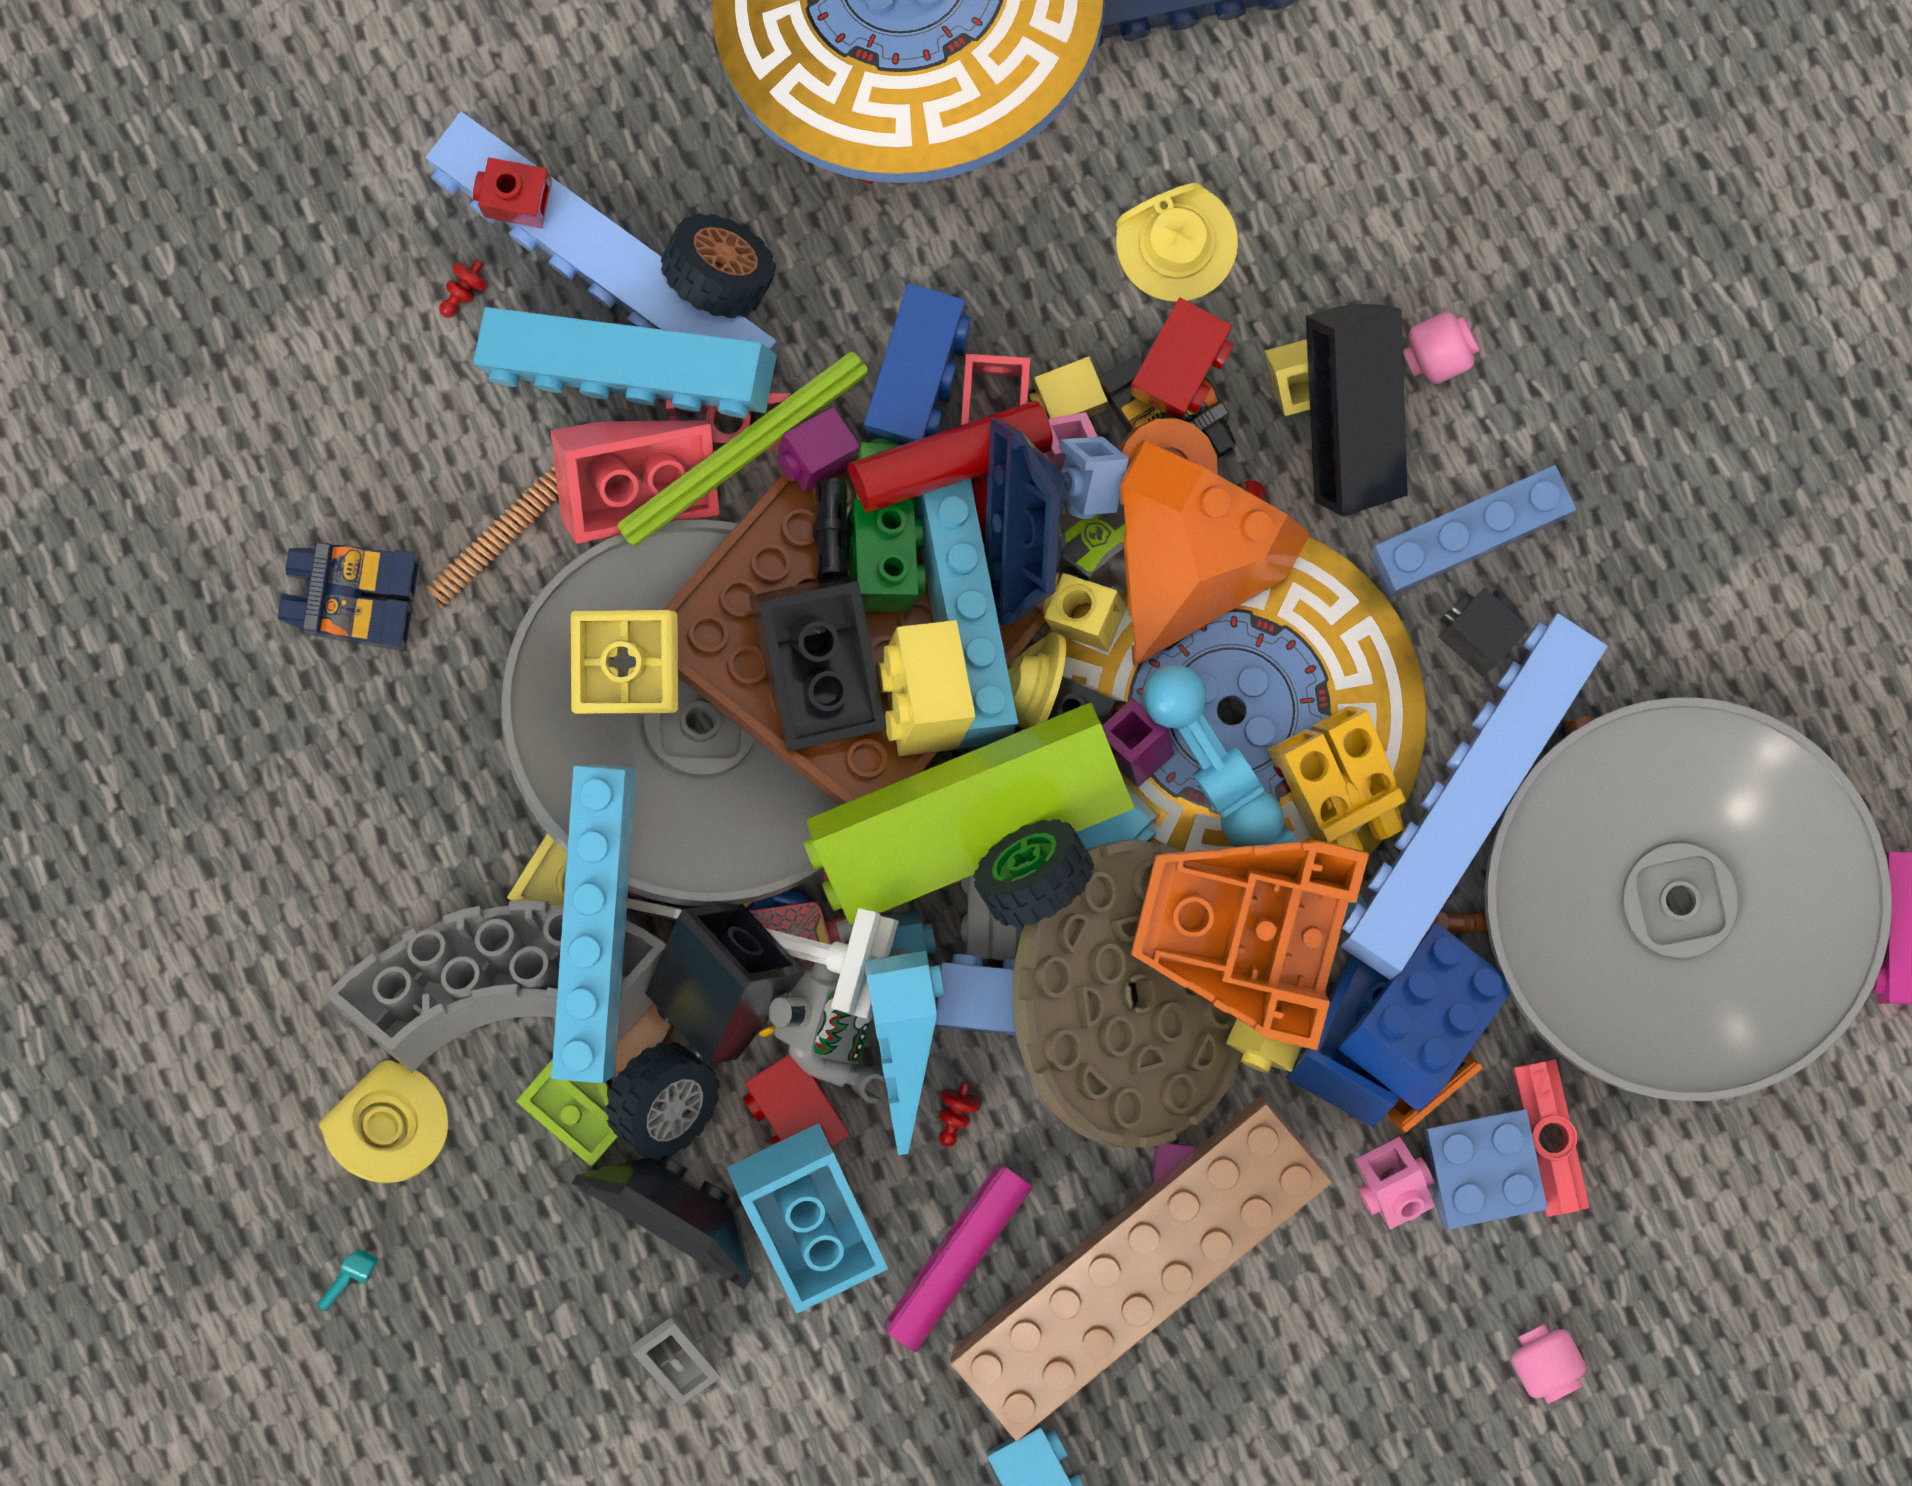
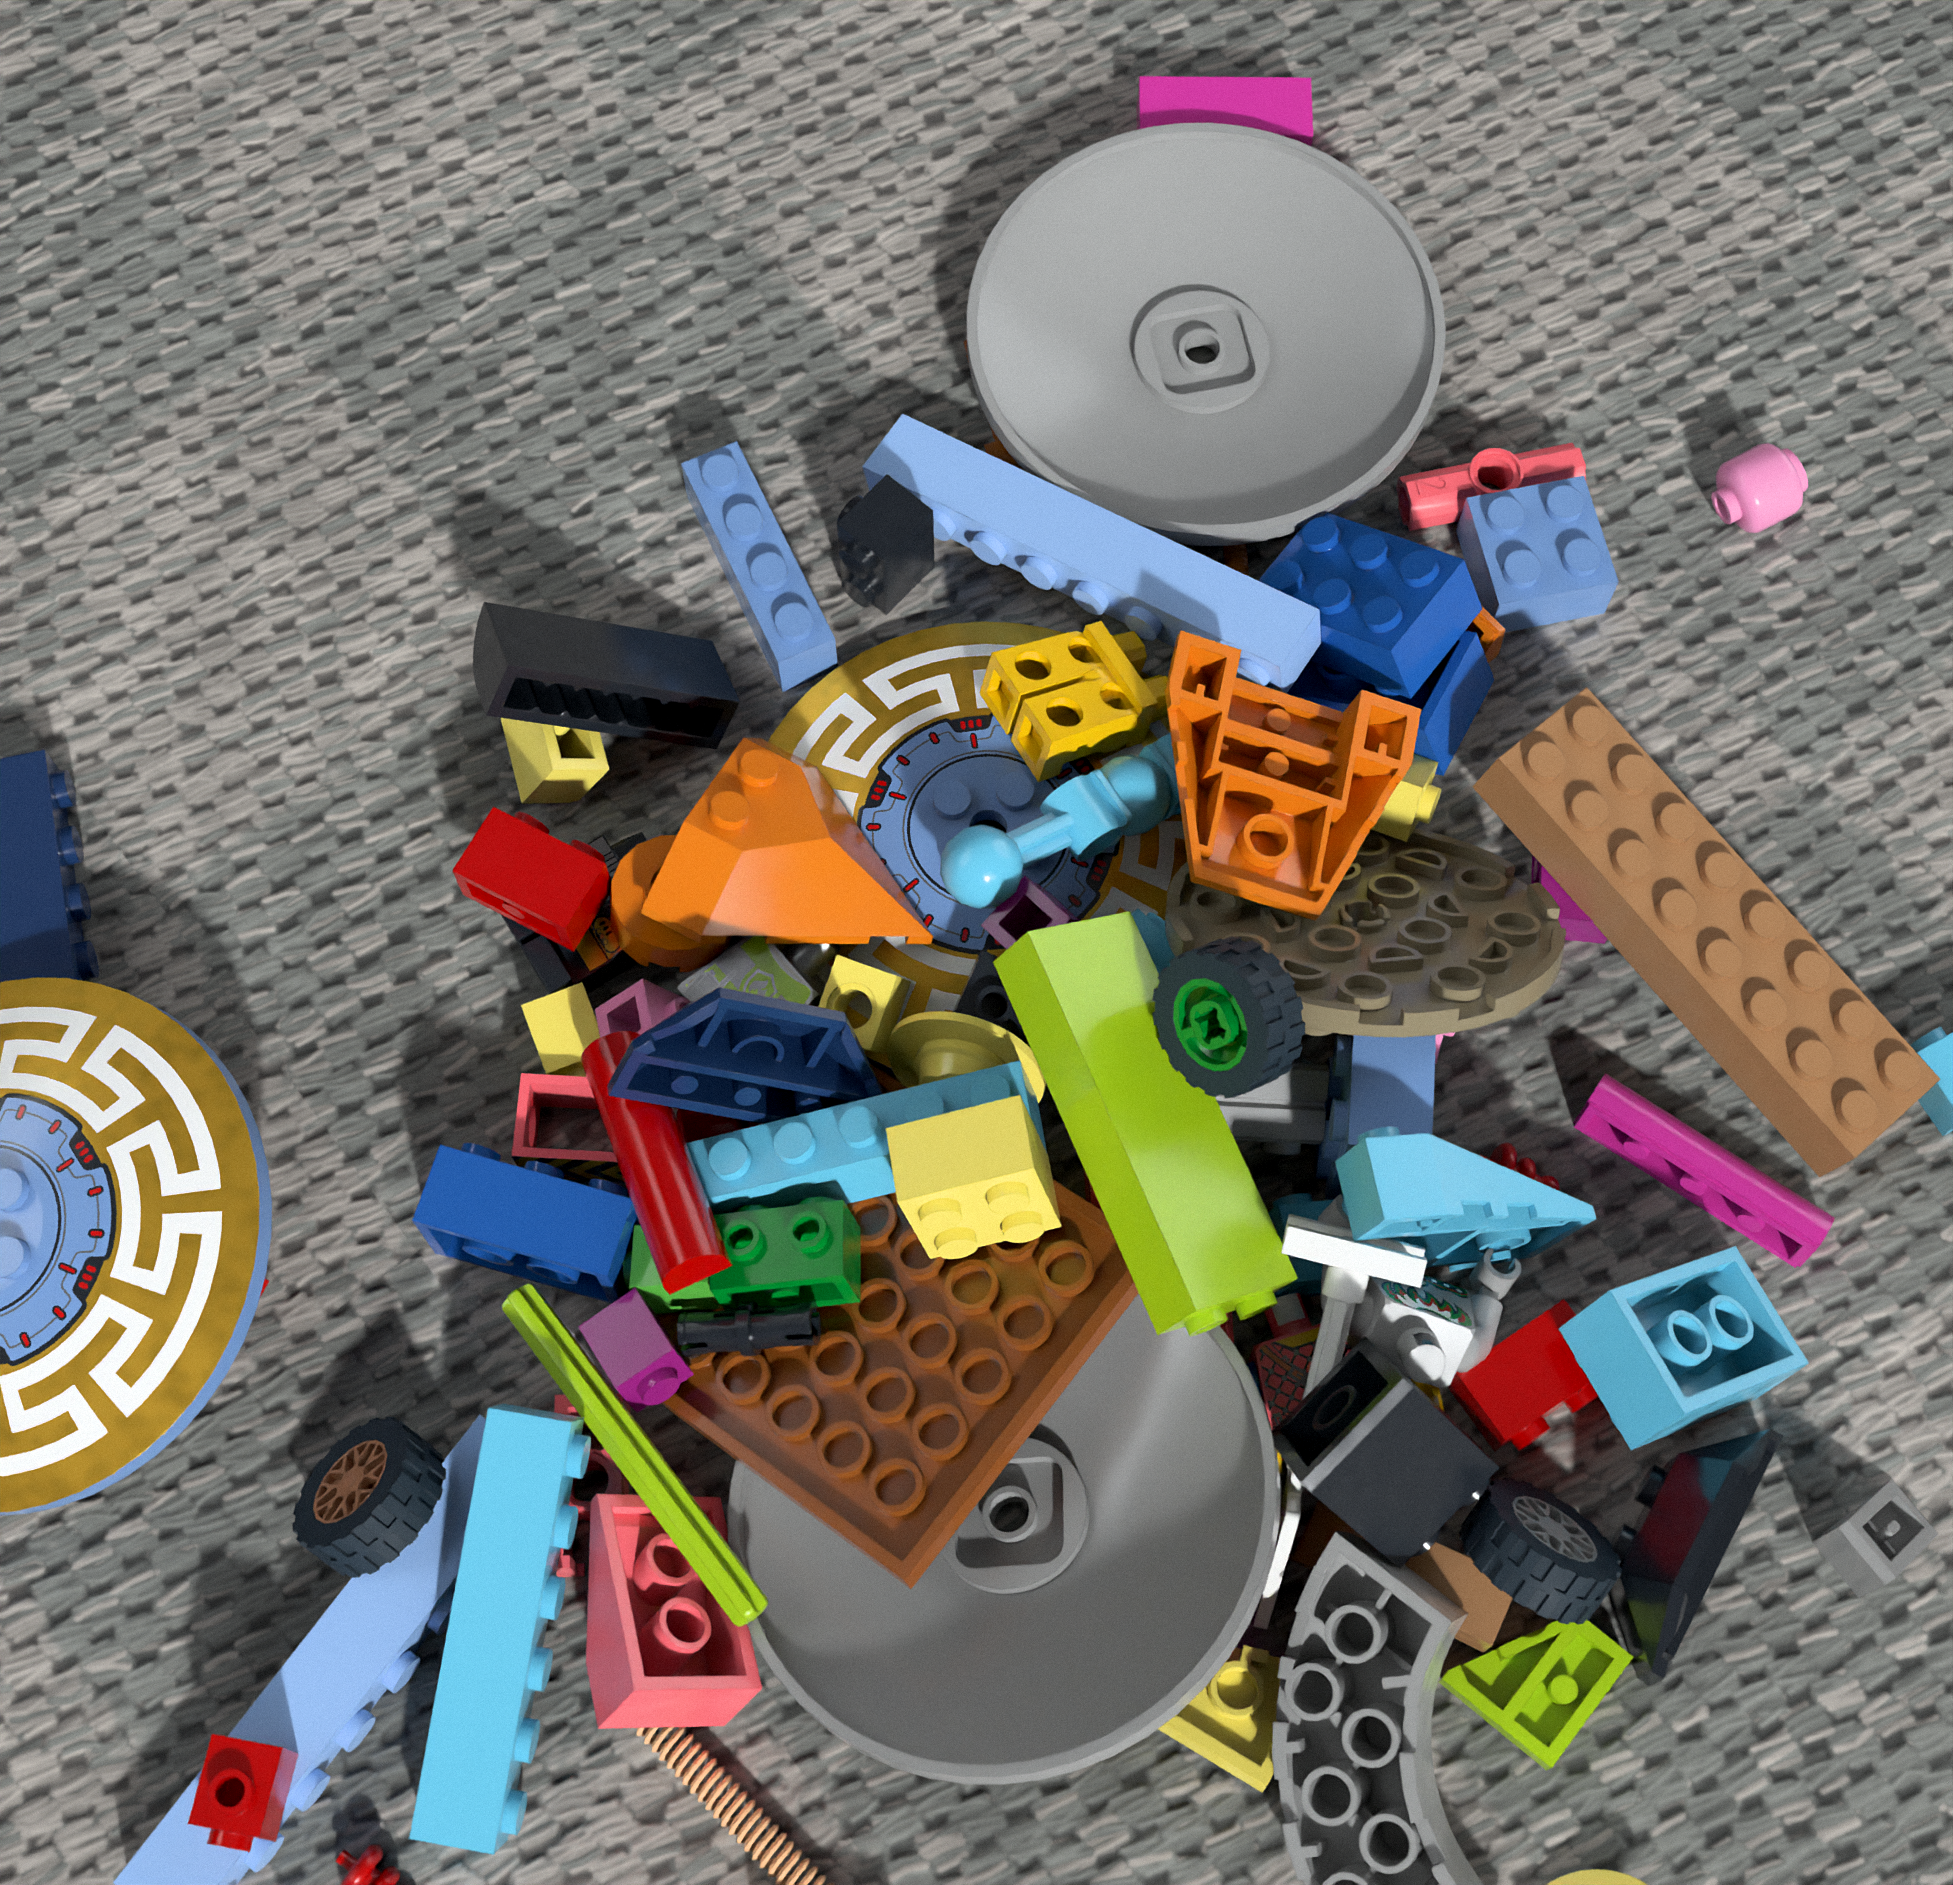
camera: 90 degrees left, 15 degrees down
(593, 923) = (1323, 1616): medium azure brick -> none
(601, 637) = (979, 1555): light yellow brick -> none
(819, 661) = (932, 1328): black slope -> none
(1092, 475) = (677, 974): light blue brick -> none
(1177, 243) = (375, 915): light yellow hat -> none
(1395, 1183) = (1564, 648): bright pink brick -> none
(1441, 347) = (527, 585): bright pink head -> none

